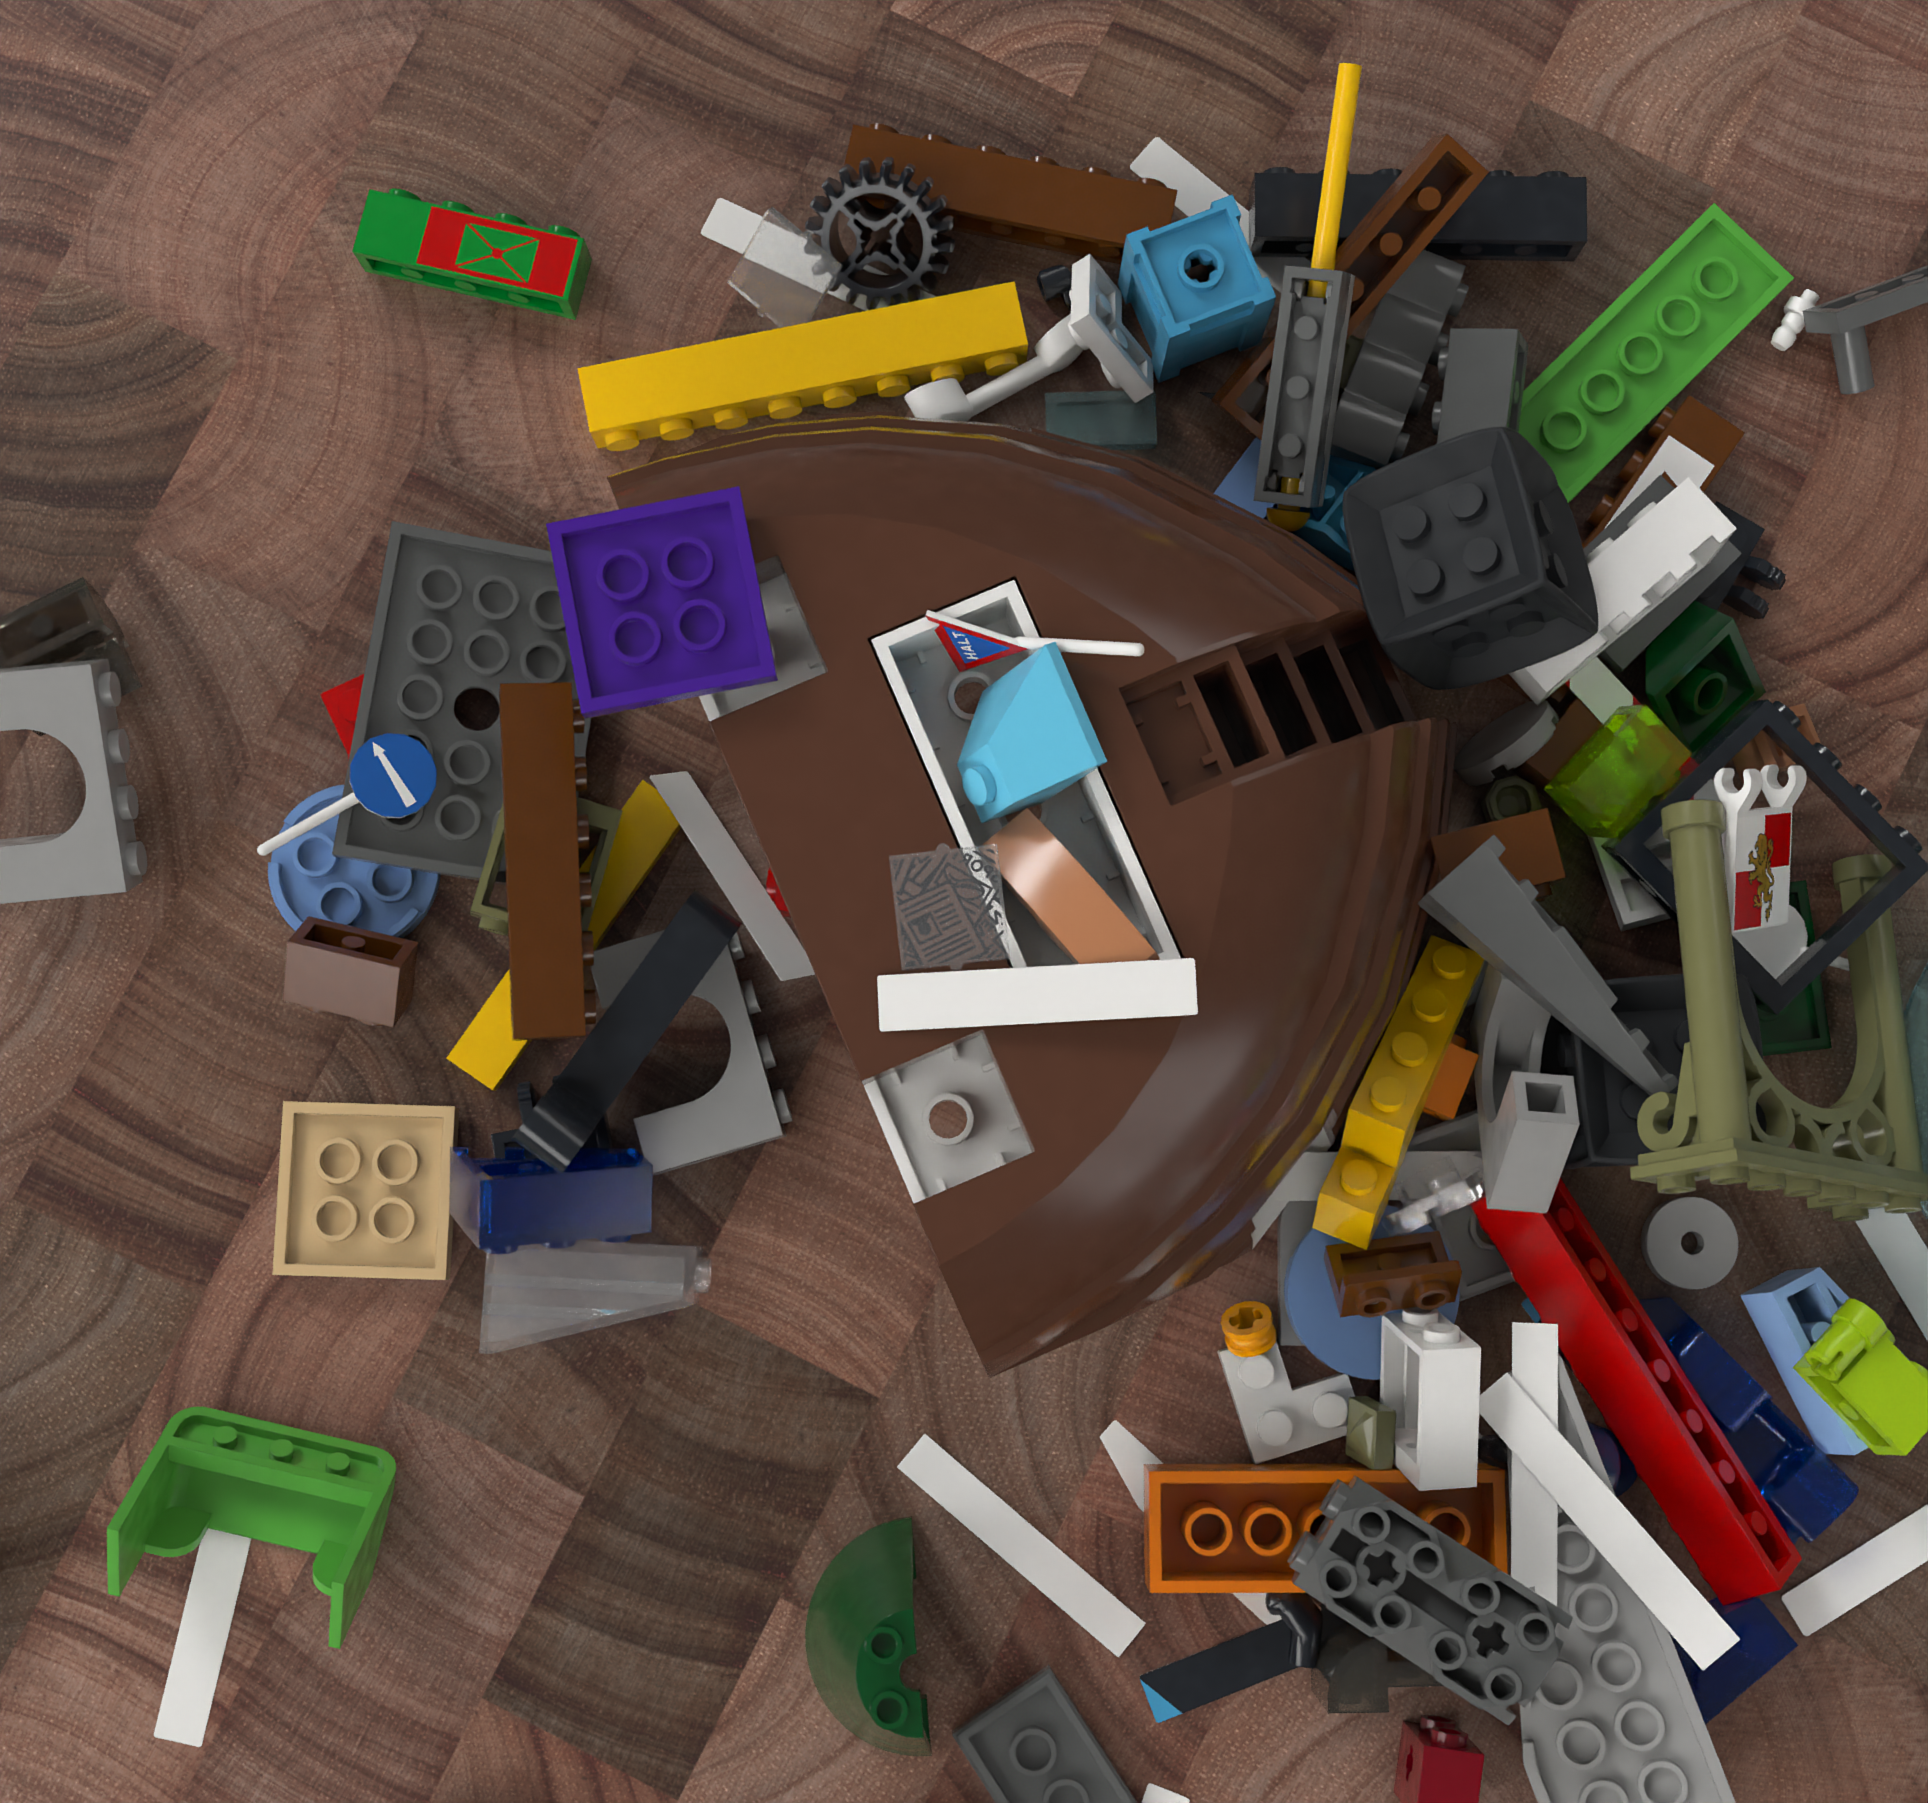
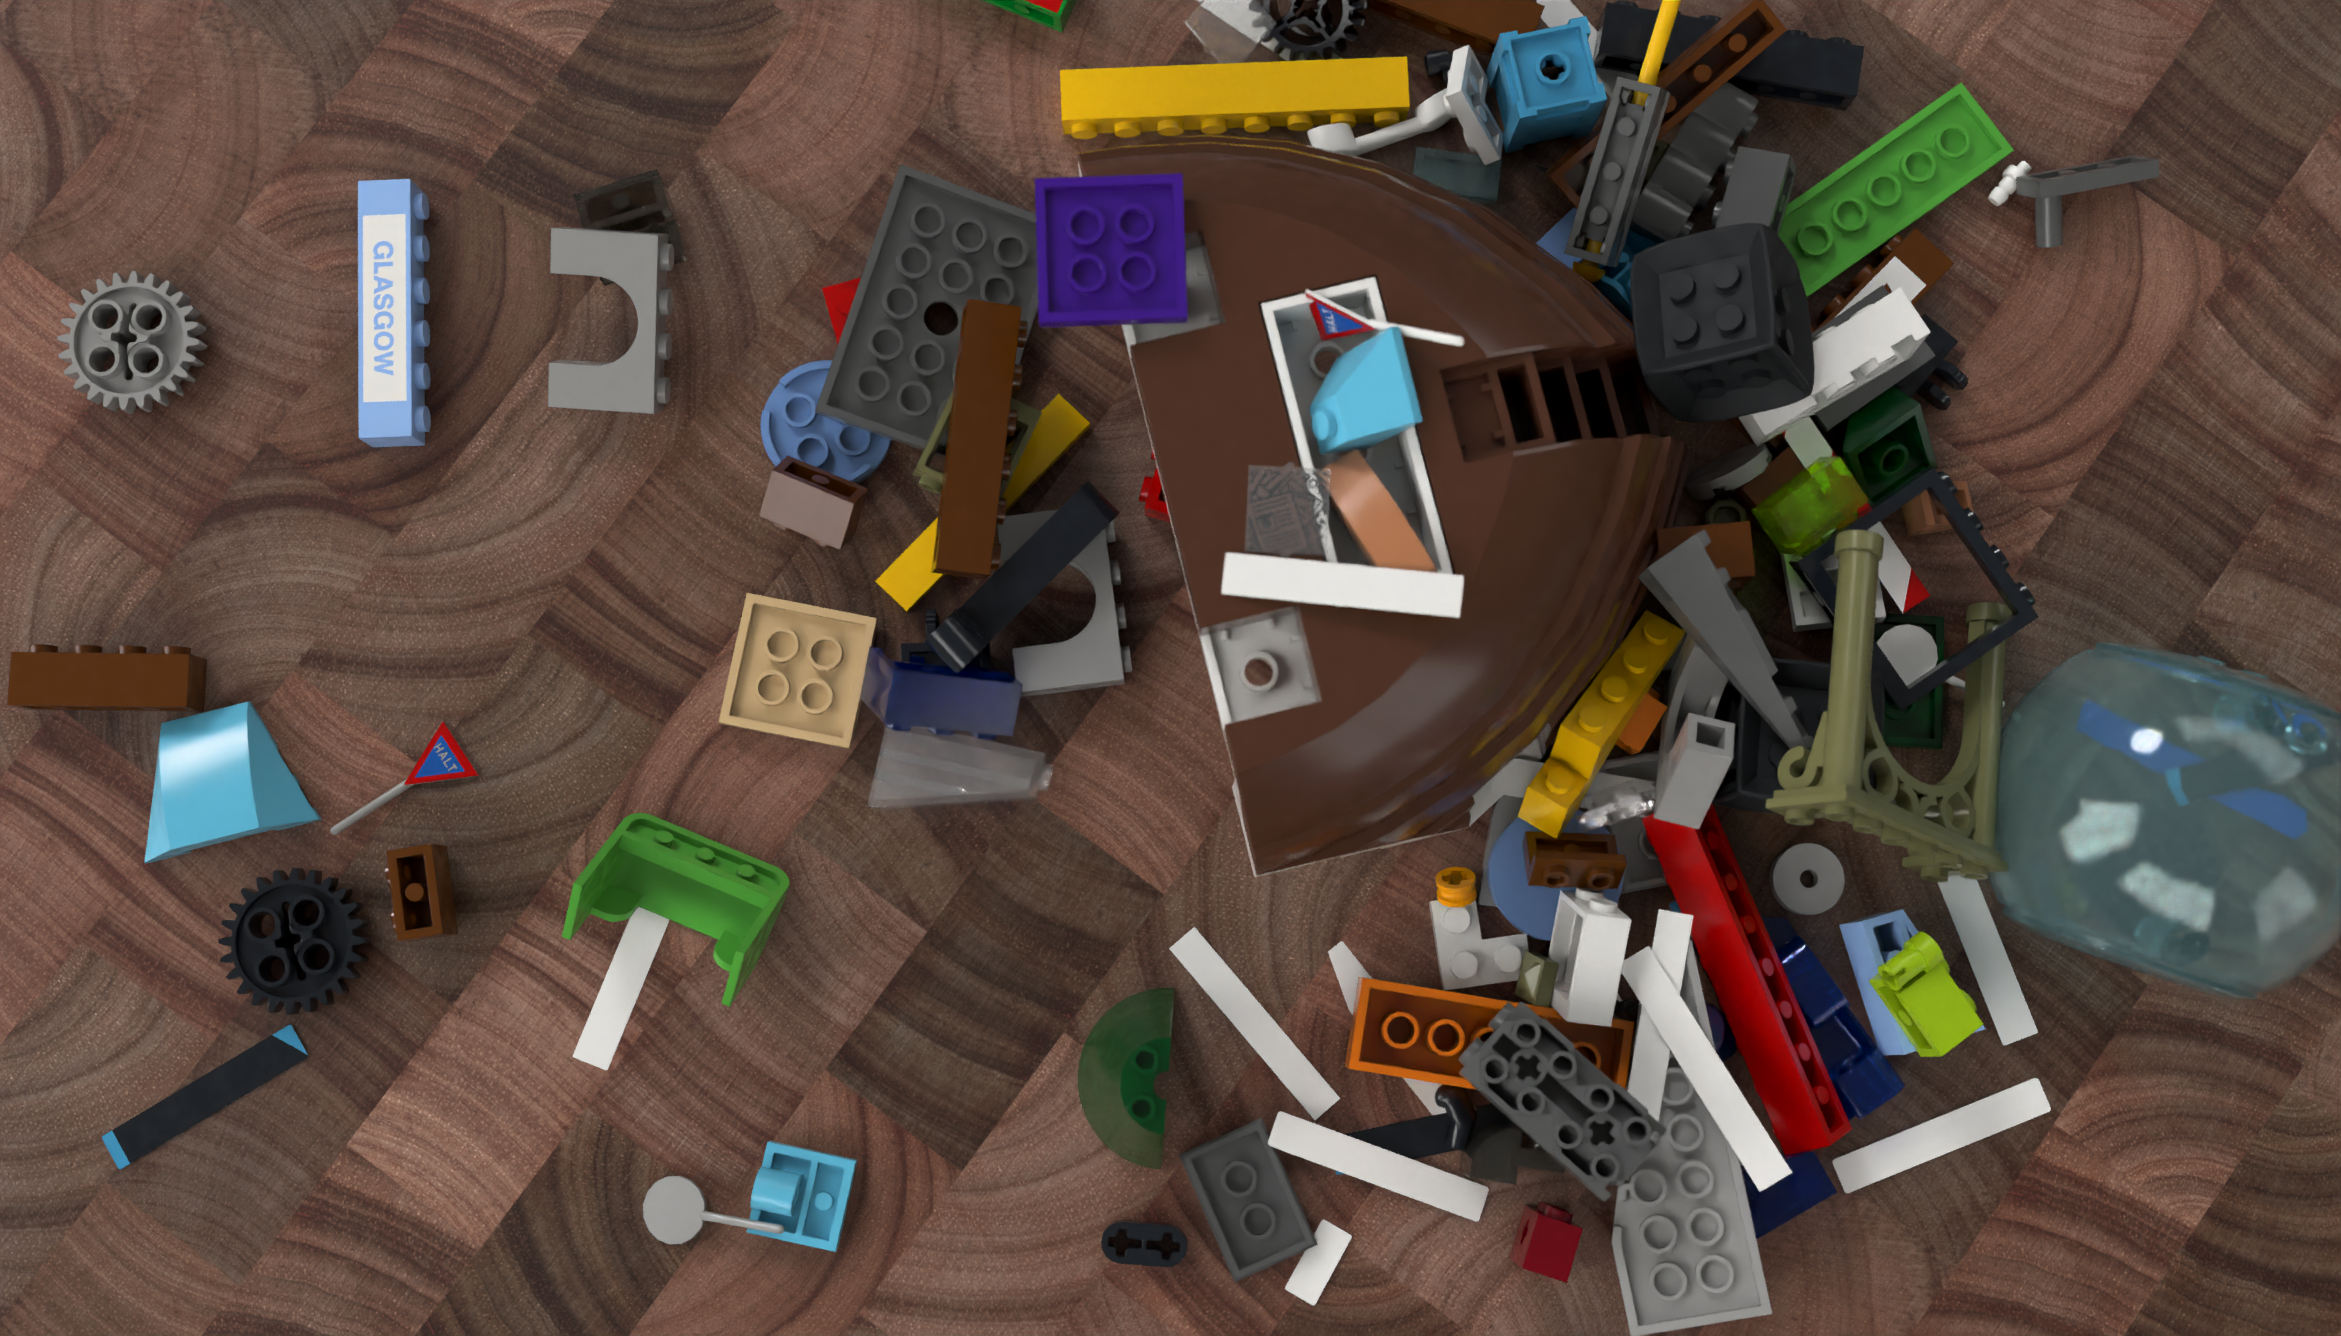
camera: 10 degrees right, 0 degrees up
(387, 776) = (866, 357): blue piece -> none
(734, 875) = (1118, 476): white sticker -> none
(1205, 1704) = (1378, 1166): none -> white sticker
(1758, 845) = (1907, 576): flag -> none

